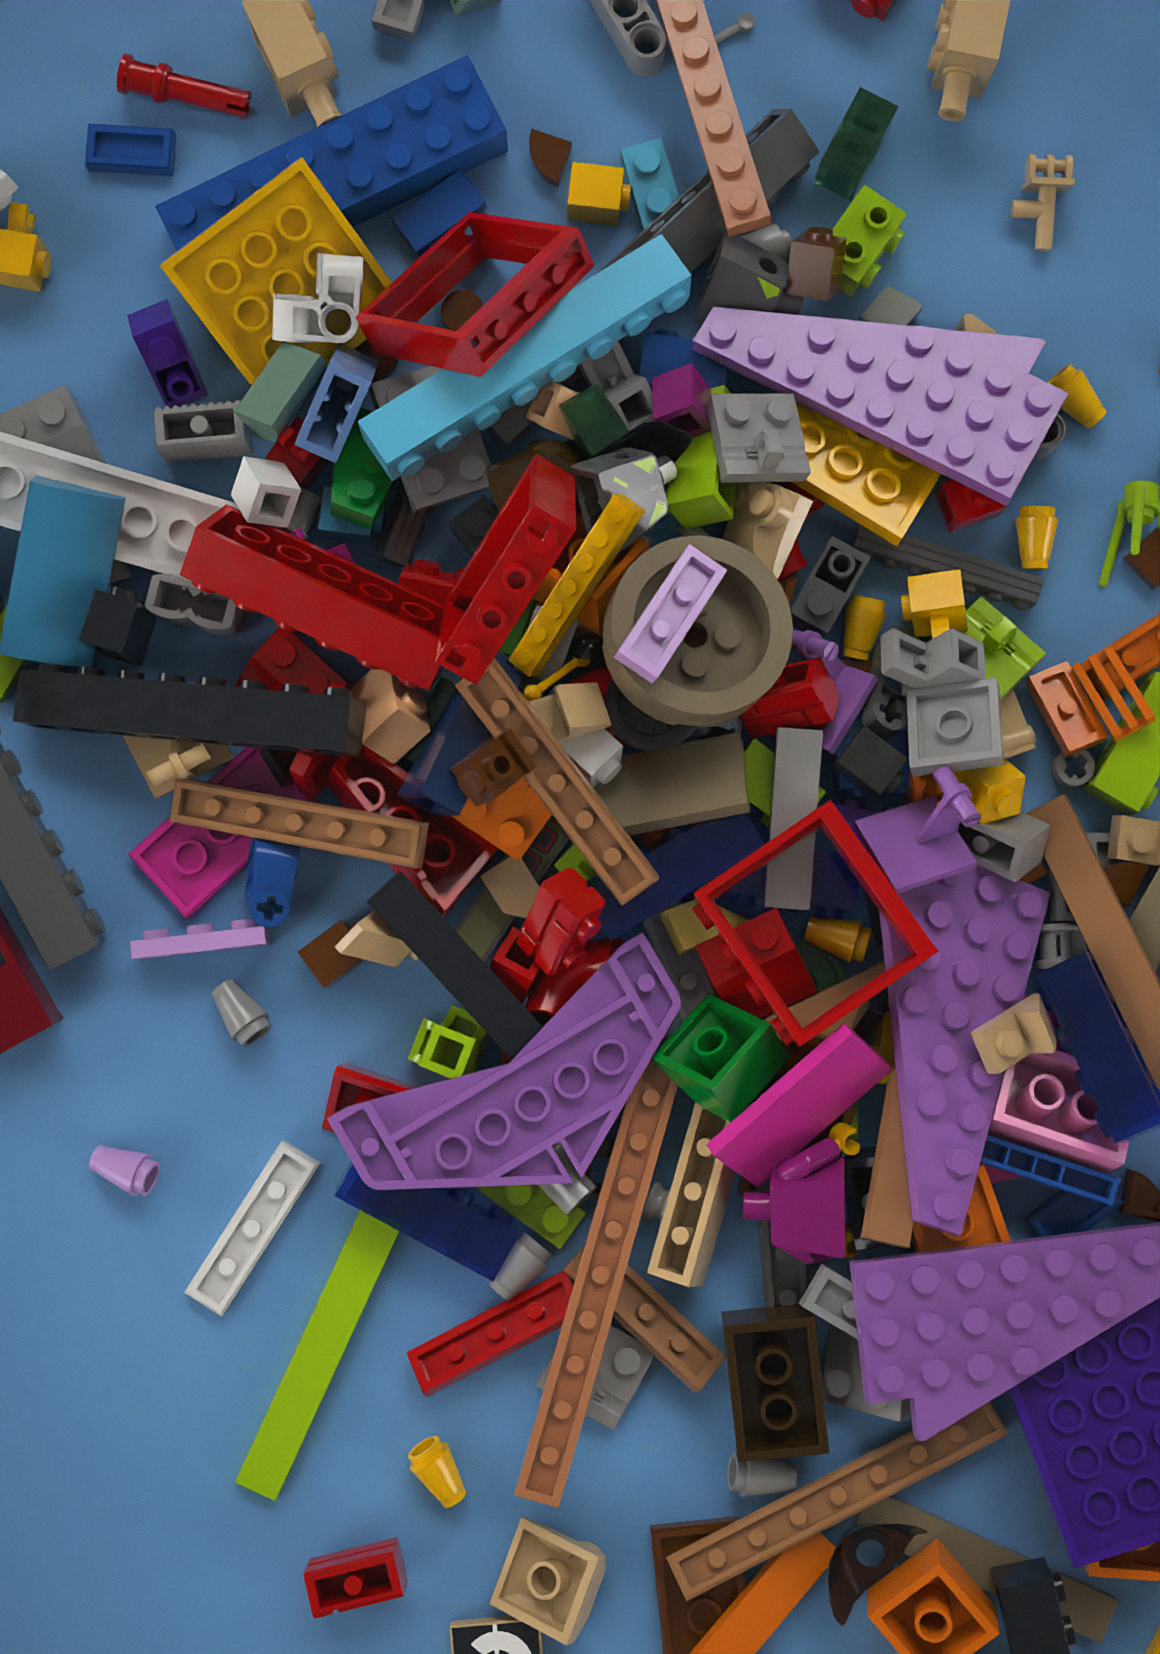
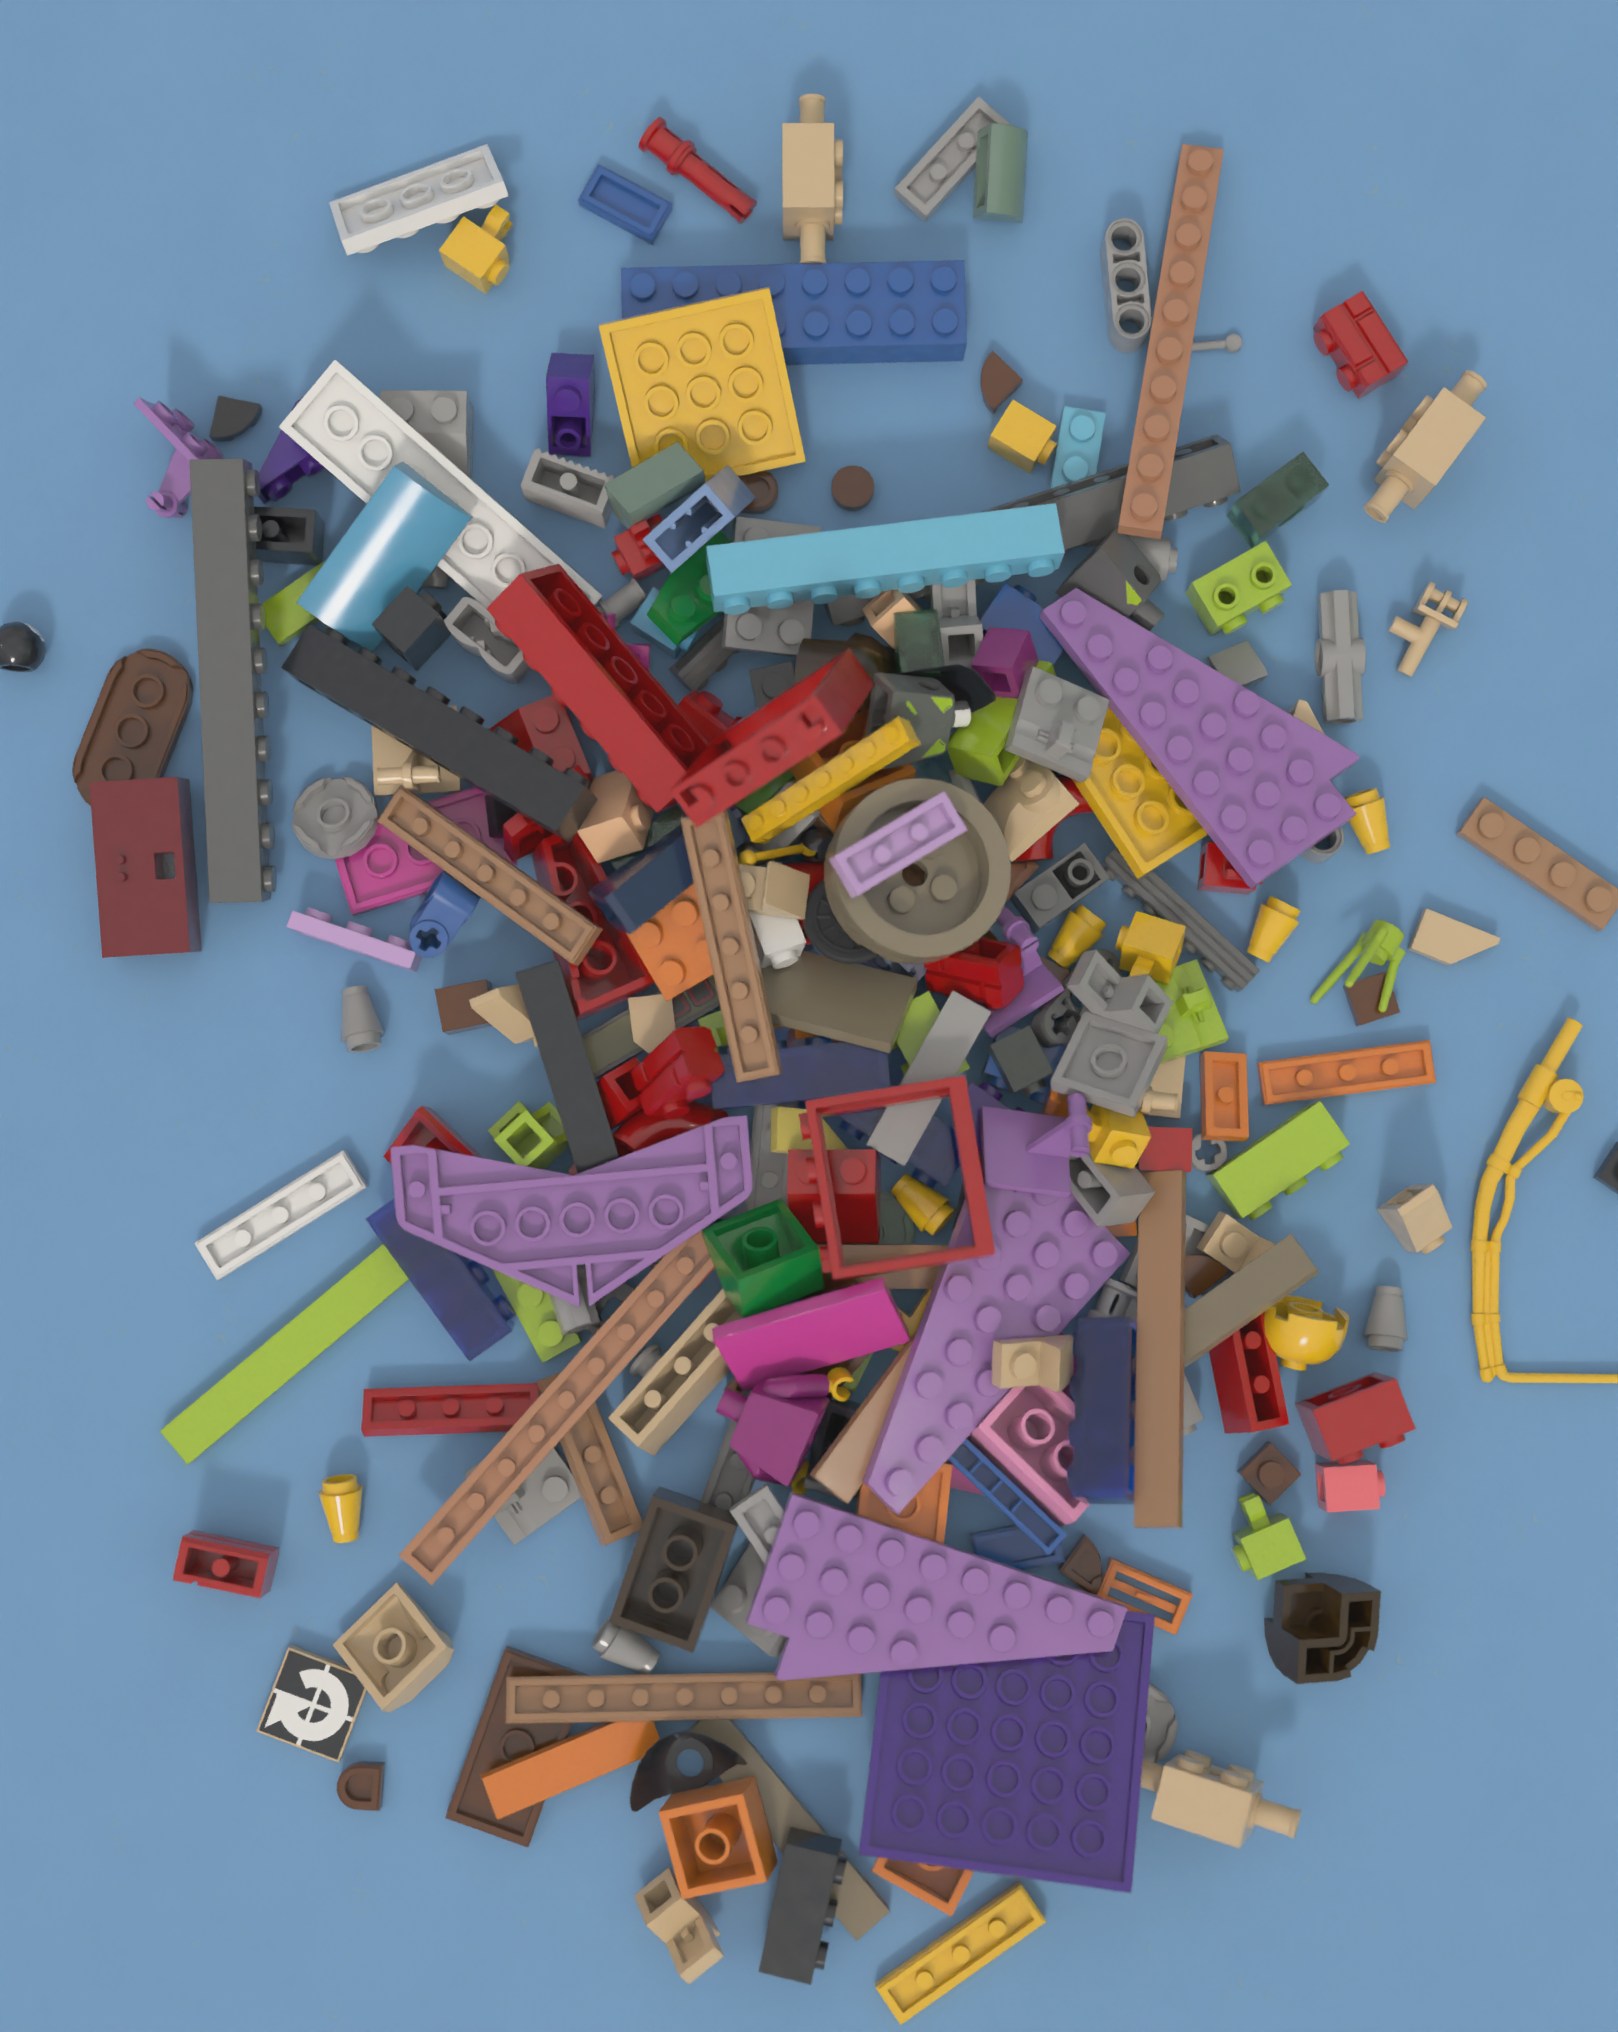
camera: 25 degrees right, 0 degrees up
(126, 1169) = (194, 1110): lavender cone -> none
(129, 836) = (335, 817): none -> light grey tile
(265, 492) = (598, 569): white brick -> none
(337, 286) = (704, 428): white piece -> none
(438, 212) = (874, 388): blue tile -> none
(492, 767) = (678, 907): reddish brown brick -> none
(521, 1267) = (500, 1361): light grey cone -> none
(554, 264) = (948, 489): red window -> none
(816, 264) = (1185, 593): reddish brown brick -> none
(870, 1014) = (915, 1284): black tile -> none
(979, 260) = (1340, 657): none -> light grey piece
(1043, 781) = (1167, 1150): none -> red brick
(1096, 663) = (1268, 1068): orange tile -> none

